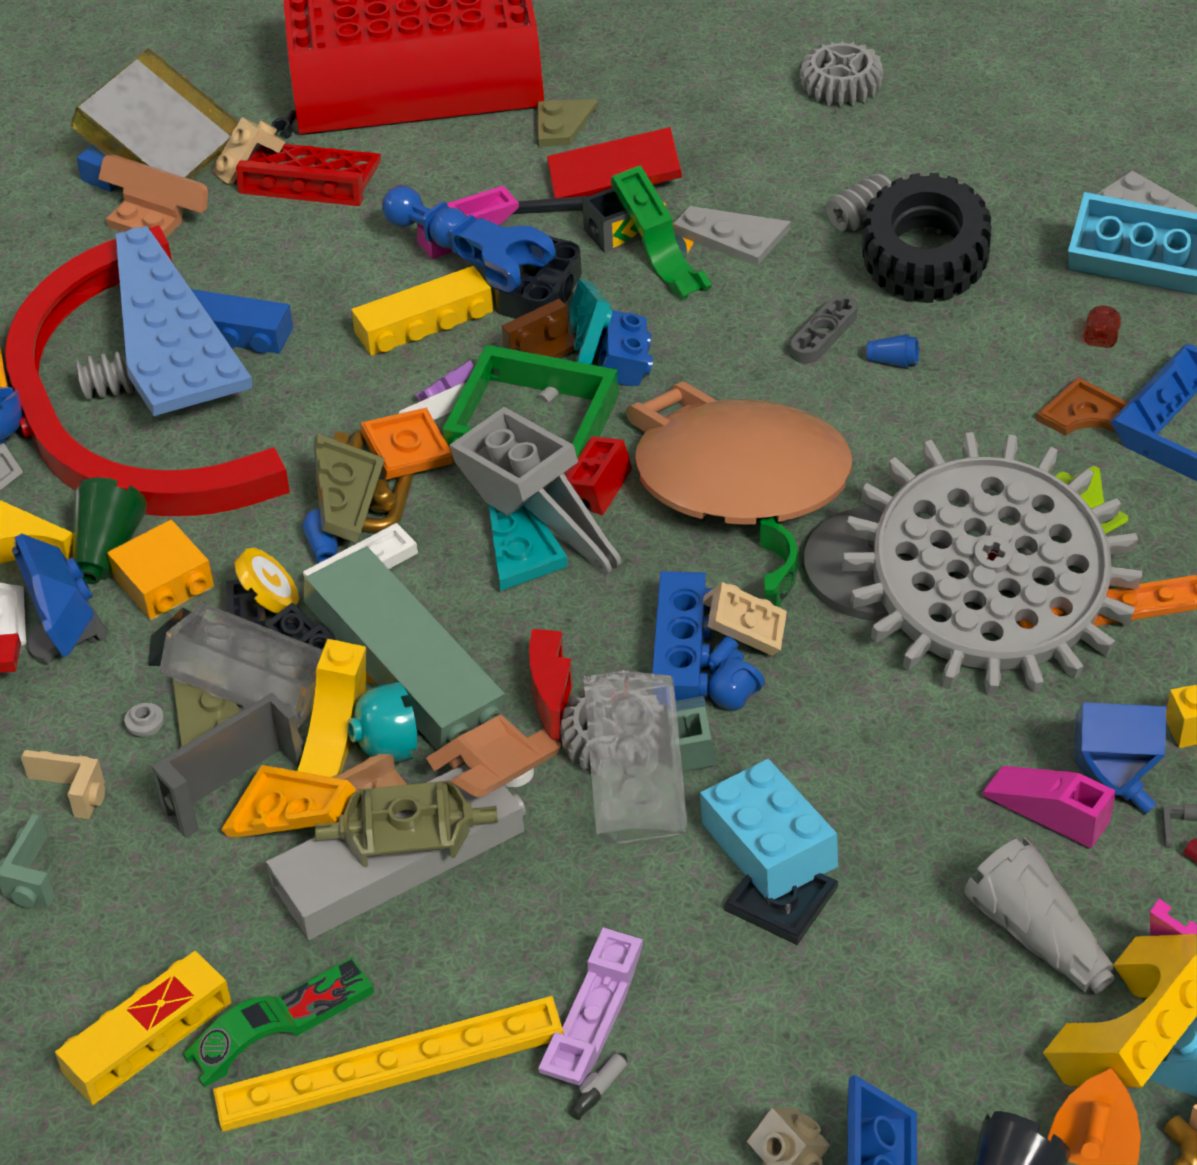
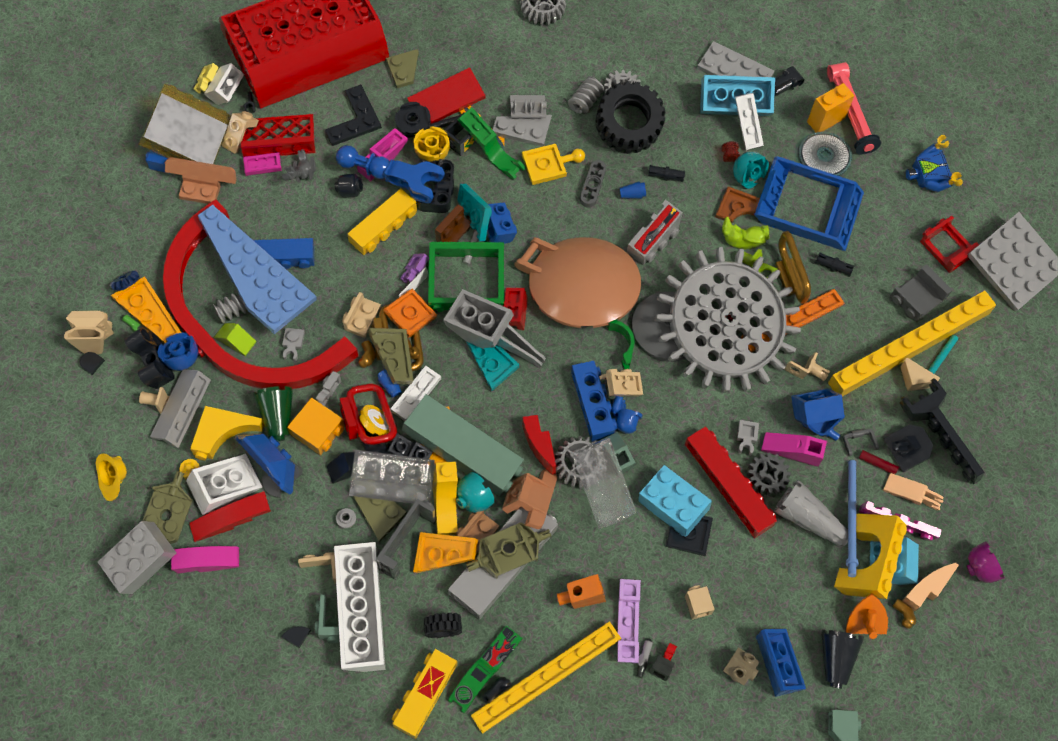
camera: 25 degrees left, 20 degrees up
(90, 857) = (359, 607): none -> white slope
(96, 423) = (236, 338): none -> lime slope
(187, 445) = (292, 340): none -> light grey plate
(215, 519) = (329, 386): none -> light grey plate
(222, 572) = (352, 420): none -> red bar
(228, 918) = (442, 625): none -> black tyre
(237, 76) = (206, 76): none -> light yellow plate
(253, 87) = (224, 84): none -> white brick
(263, 202) = (262, 164): none -> dark pink plate
(291, 1053) = (499, 685): none -> black arm
(304, 493) = (369, 355): none -> pearl gold arm
(320, 418) = (360, 315): none -> tan bracket
(322, 221) = (302, 169): none -> dark grey piece
(390, 252) = (349, 185): none -> black head
(464, 178) = (364, 123): none -> black plate
(524, 933) = (591, 592): none -> orange torso
(528, 190) = (405, 113): none -> black plate
(557, 214) = (431, 144): none -> yellow cylinder
(630, 1106) = (663, 665): none -> pearl dark grey piece
(747, 1010) = (699, 602): none -> tan brick
(756, 285) = (546, 163): none -> yellow plate
(762, 203) = (528, 106): none -> light grey hinge
(898, 830) = (730, 482): none -> red brick
(908, 414) = (655, 234): none -> wedge
(962, 759) = (747, 434): none -> light grey plate
(967, 338) = (666, 173): none -> black pin
(977, 829) = (773, 466): none -> dark grey gear
(1077, 454) = (745, 239): none -> lime animal
(1091, 1005) = (852, 562): none -> medium blue bar
(1131, 348) = (749, 166): none -> teal cylinder
(1133, 679) = (811, 367): none -> tan bracket
(1150, 280) = (749, 121): none -> white plate
(1151, 518) = (792, 270): none -> pearl gold bar

